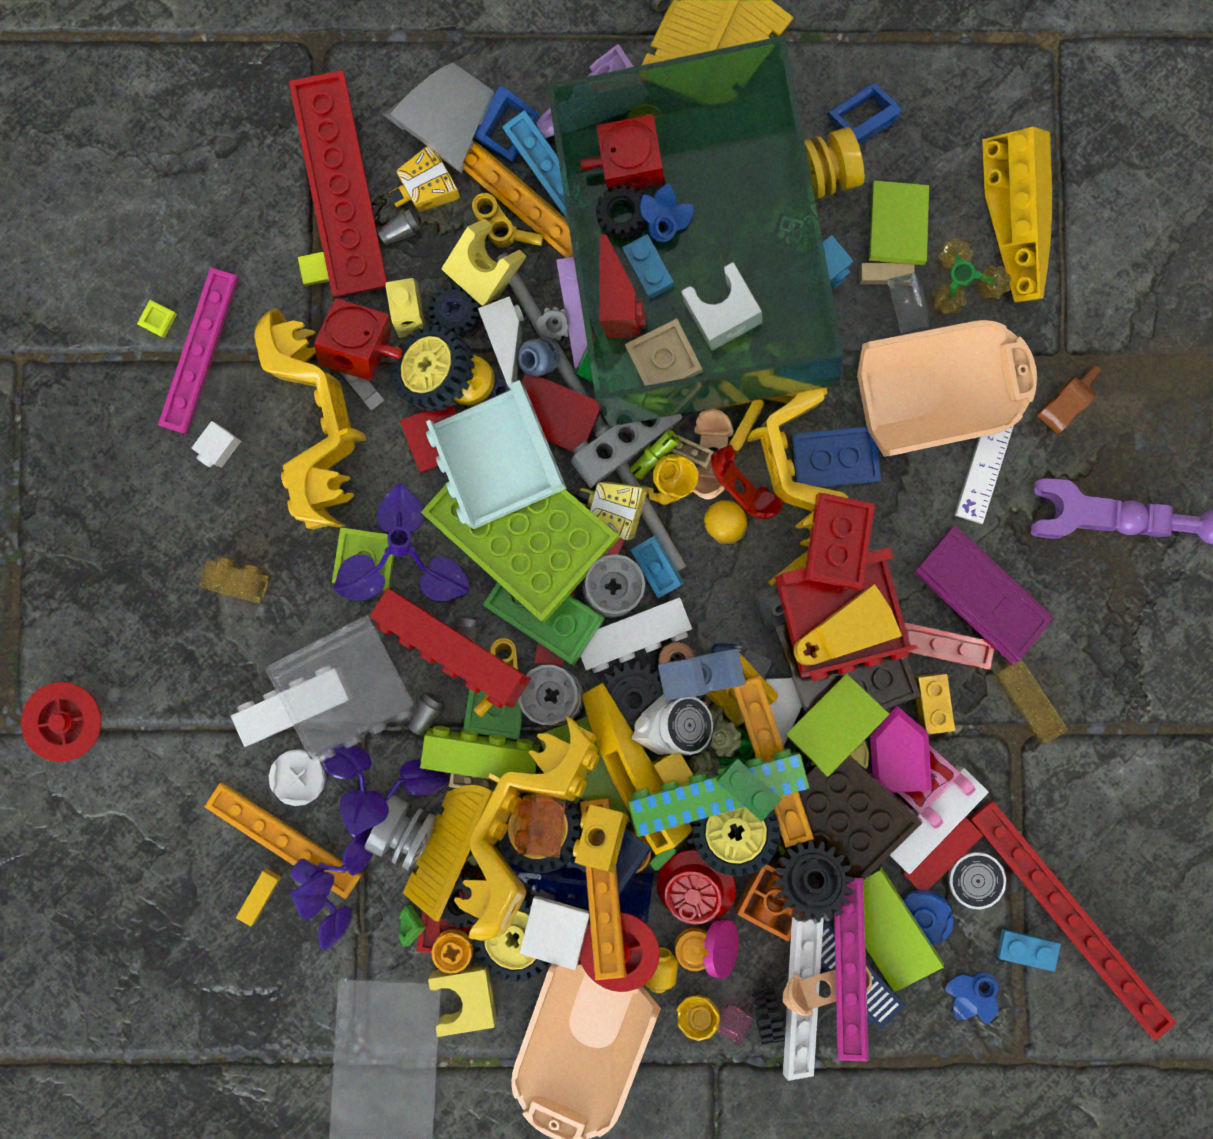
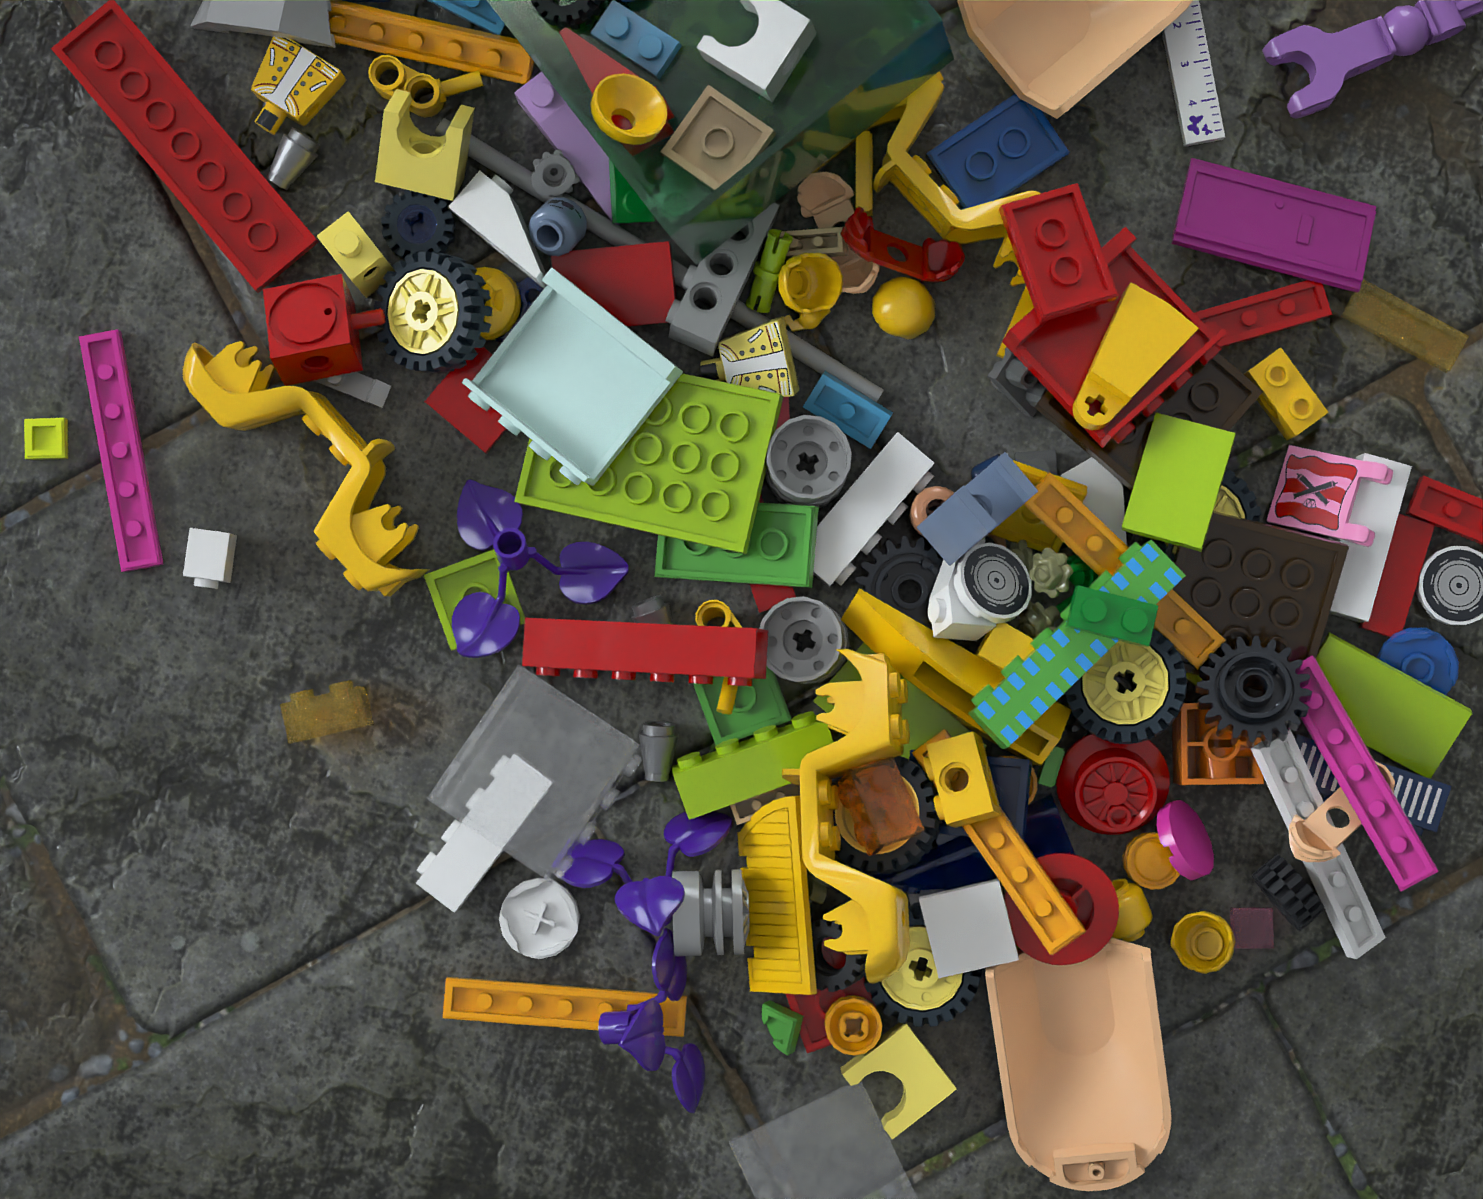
camera: 30 degrees left, 0 degrees up
(61, 722) = (206, 1007): red wheel -> none
(258, 897) = (573, 1094): yellow piece -> none
(313, 269) = (211, 268): neon yellow tile -> none
(622, 302) = (633, 99): none -> yellow piece
(901, 753) = (1277, 476): dark pink tile -> none

